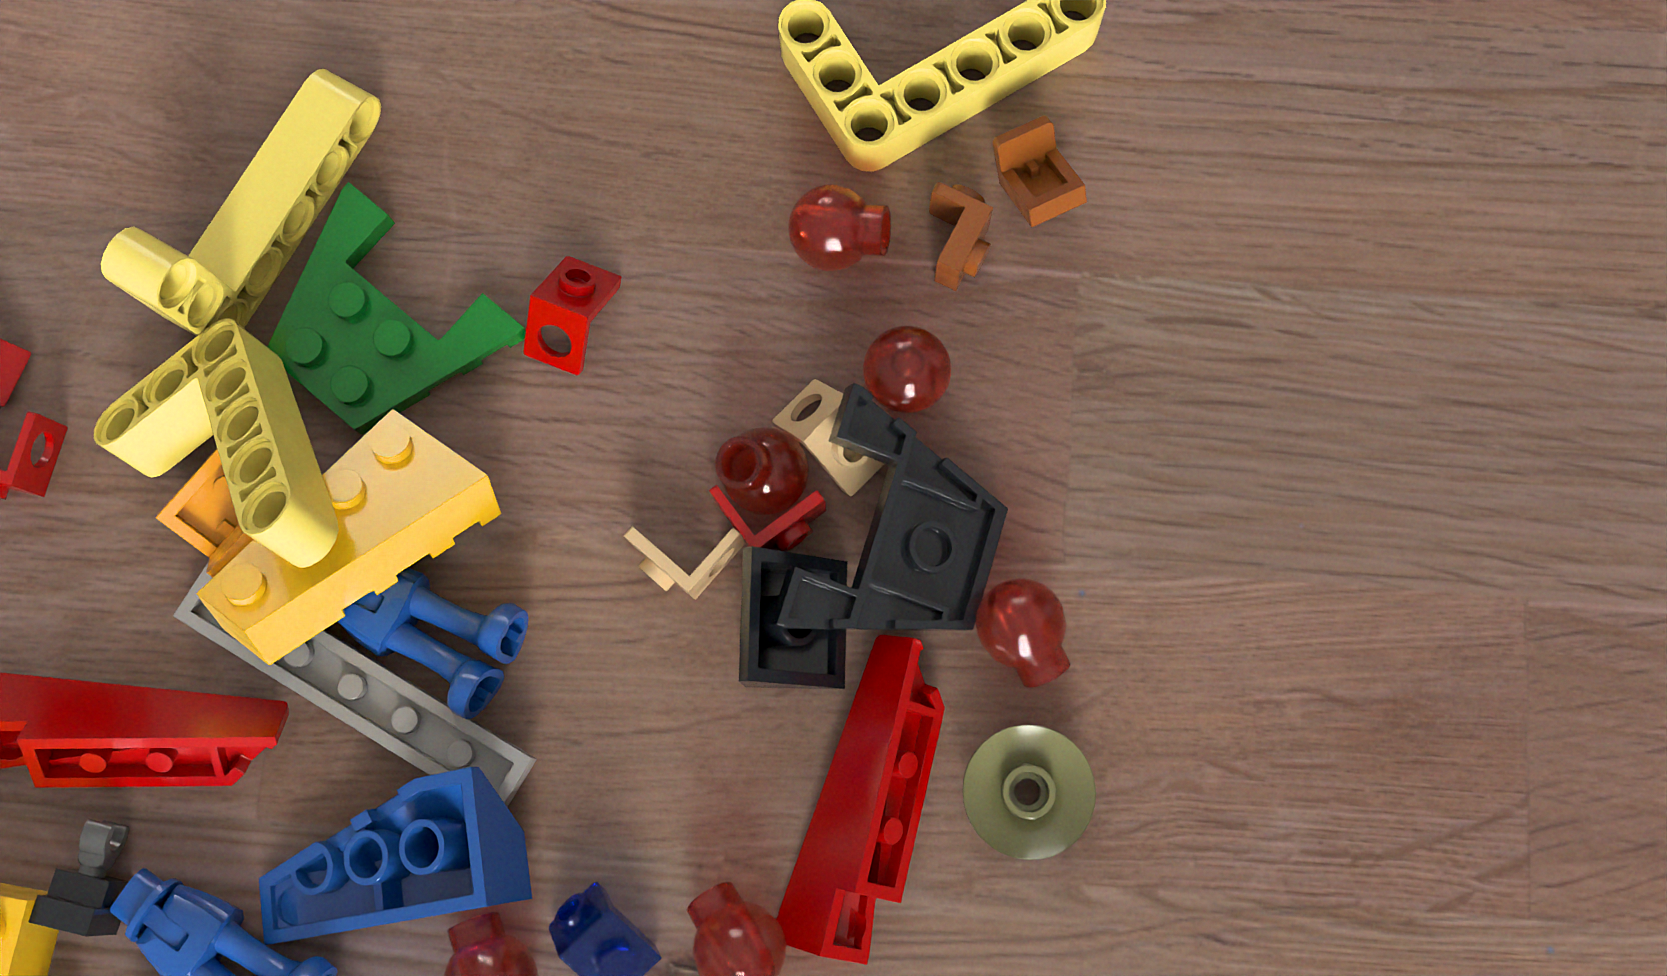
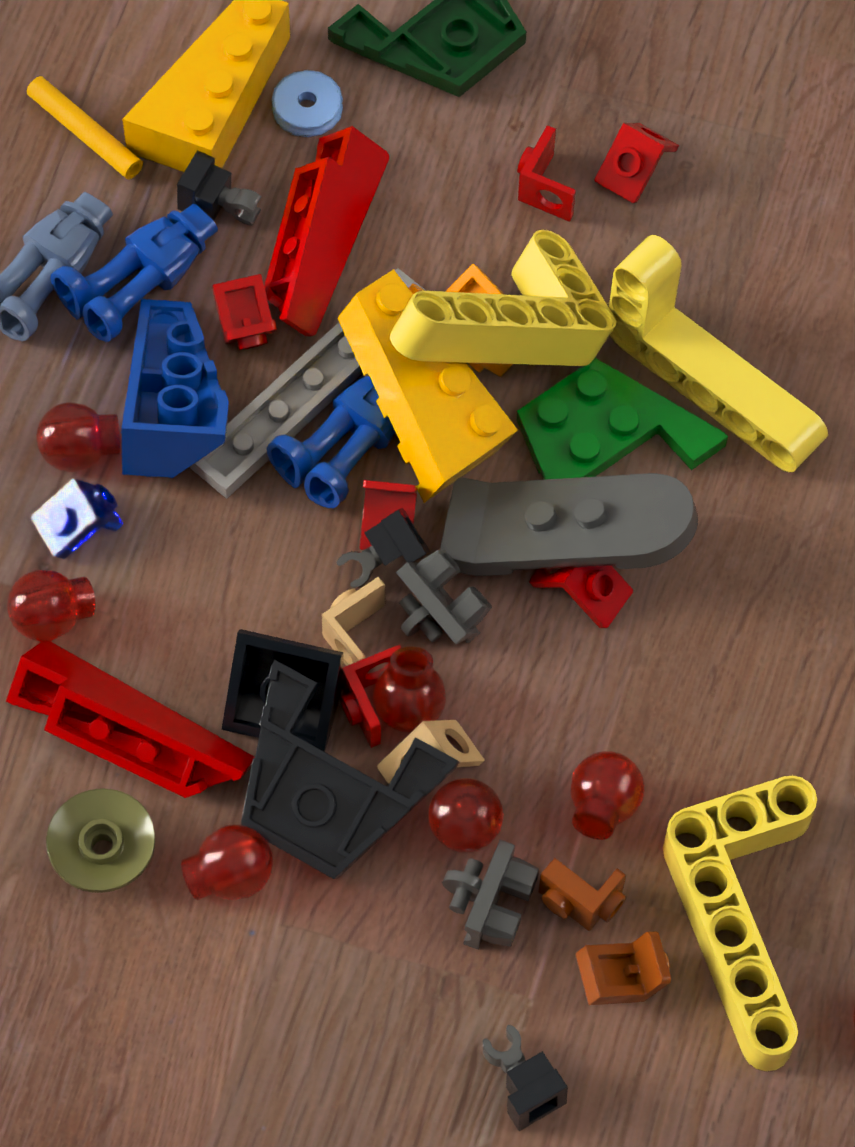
camera: 95 degrees right, 15 degrees down
(267, 799) = (244, 311): none -> red bracket
(508, 328) = (568, 523): none -> dark grey piece
(527, 550) = (381, 501): none -> red bracket
(569, 534) = (389, 540): none -> black piece
(615, 479) = (455, 616): none -> dark grey hips
(984, 339) = (504, 875): none -> dark grey hips
(1185, 246) = (533, 1083): none -> black piece

